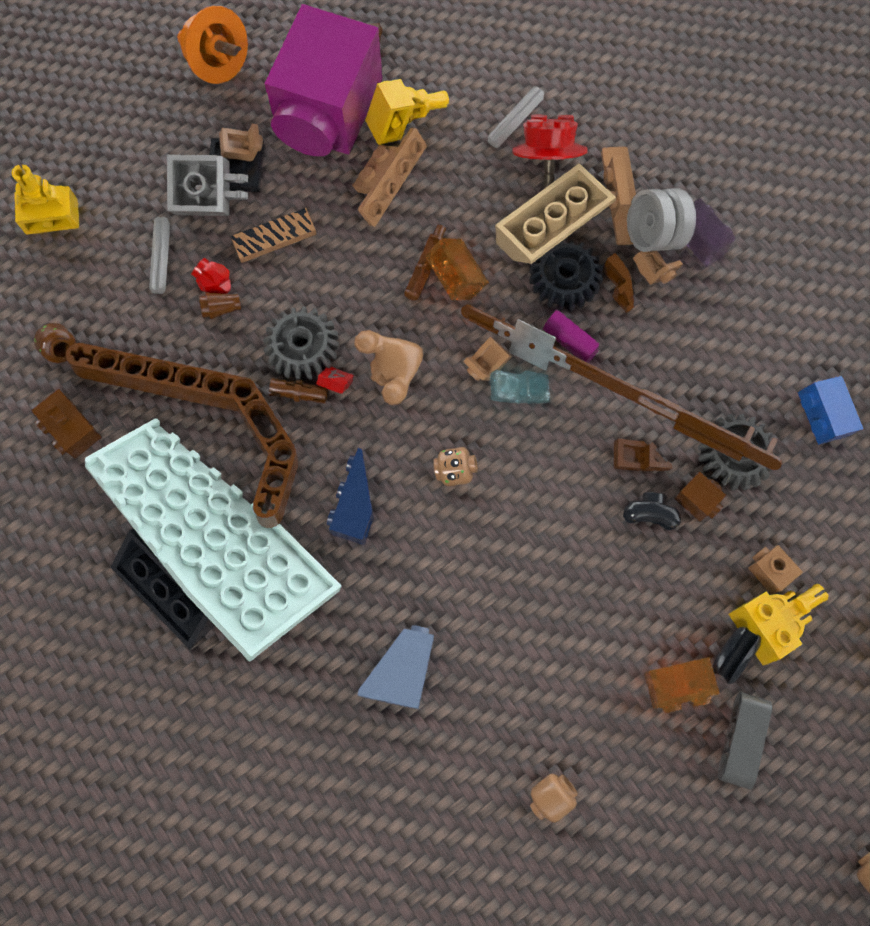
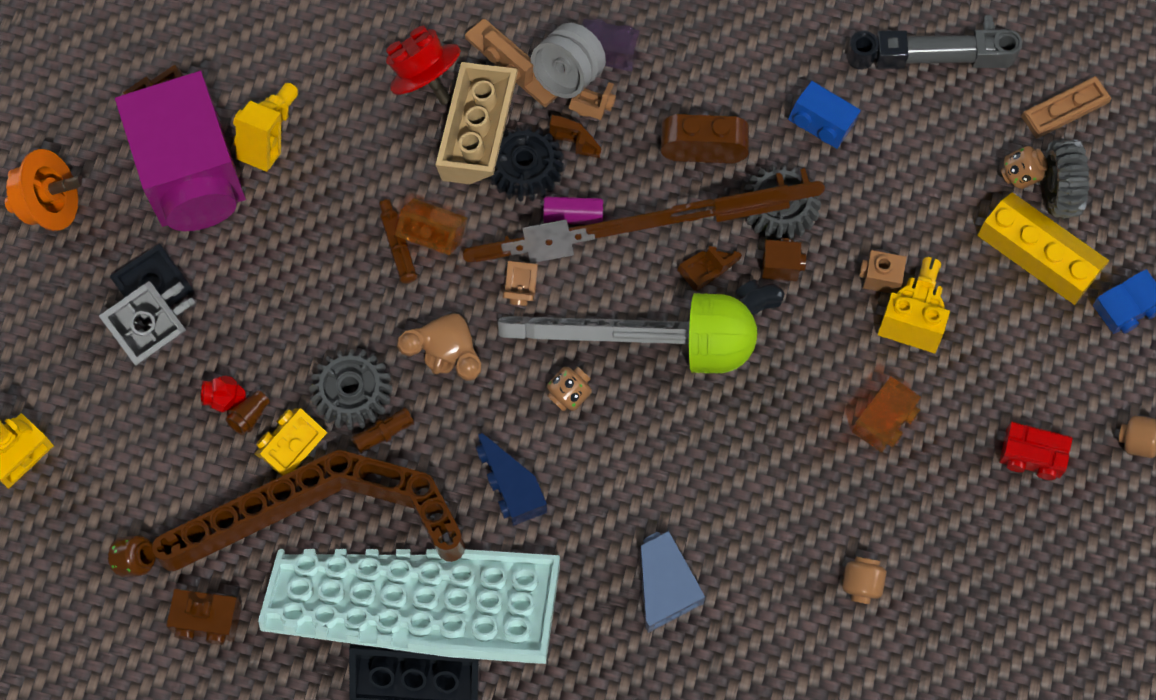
camera: 40 degrees left, 5 degrees down
(159, 255) = (154, 412): light grey axle -> none
(228, 348) = (290, 441): none -> yellow bracket
(240, 144) = (146, 260): medium nougat bracket -> none
(273, 235) = (242, 318): medium nougat tile -> none
(335, 379) = (407, 396): red tile -> none
(386, 174) = (296, 192): medium nougat bracket -> none
(515, 117) = (366, 61): light grey axle -> none
(519, 388) = (566, 285): clear light blue slope -> none
(596, 515) = (718, 334): none -> piece
(718, 358) = (705, 138): none -> reddish brown brick
(736, 654) = (909, 358): black piece -> none
(745, 740) = (967, 419): dark grey beam -> none
(780, 812) = (1035, 451): none -> red brick

